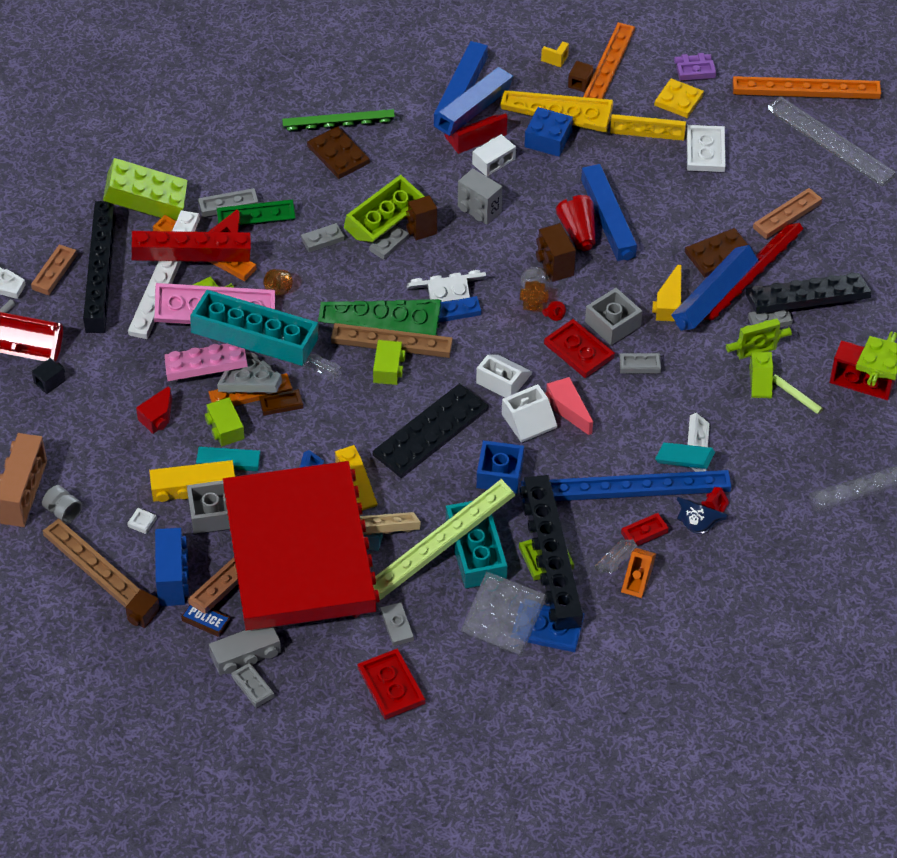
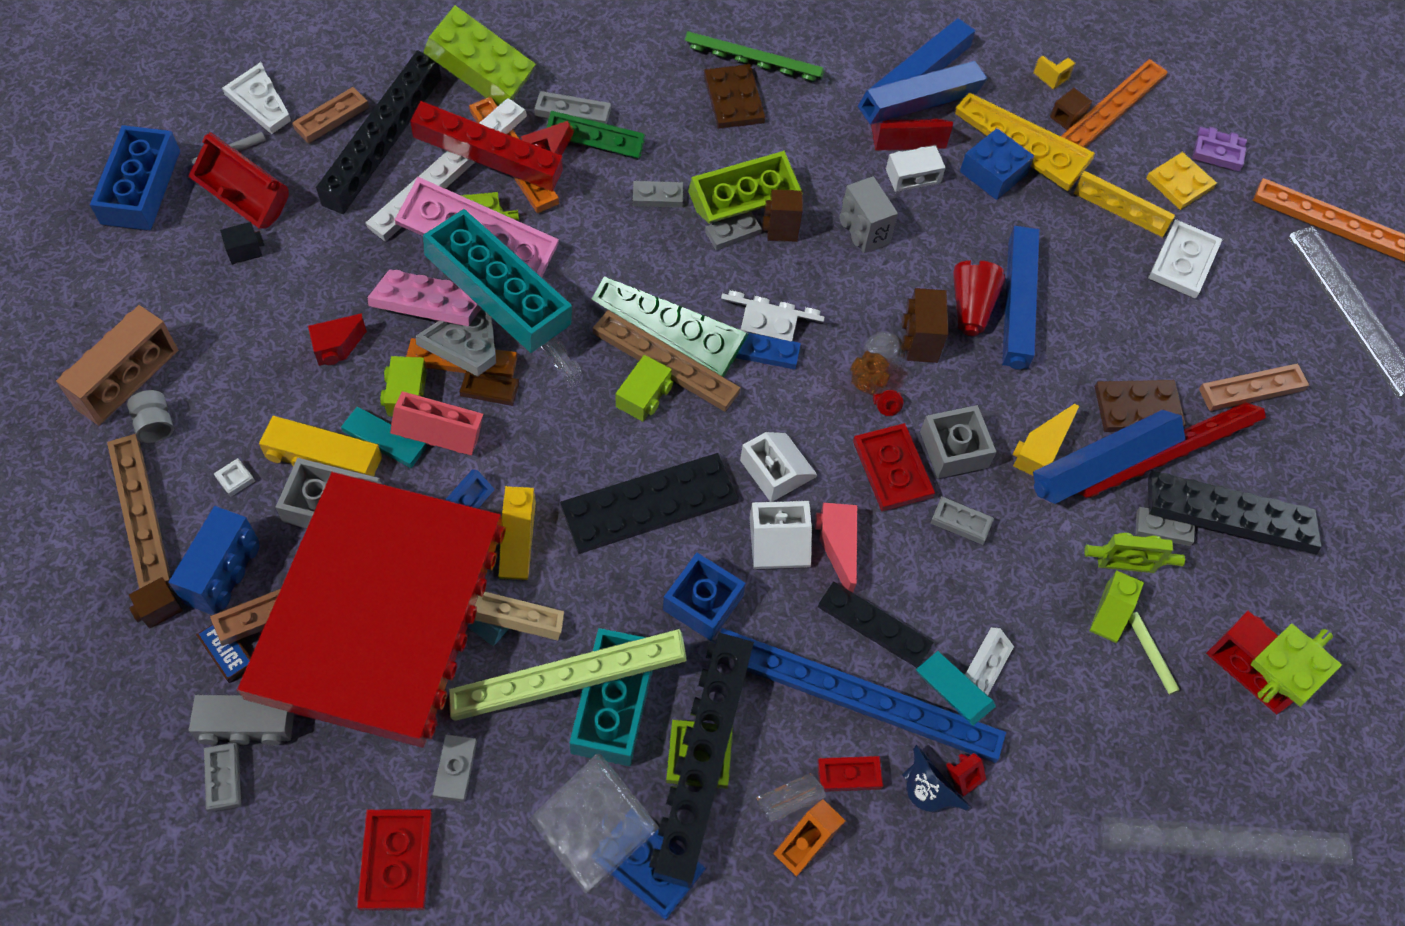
camera: 20 degrees right, 10 degrees up
(264, 433) = (436, 423): none -> coral brick
(278, 280) = (570, 229): clear orange head -> none
(616, 444) = (875, 624): none -> black plate

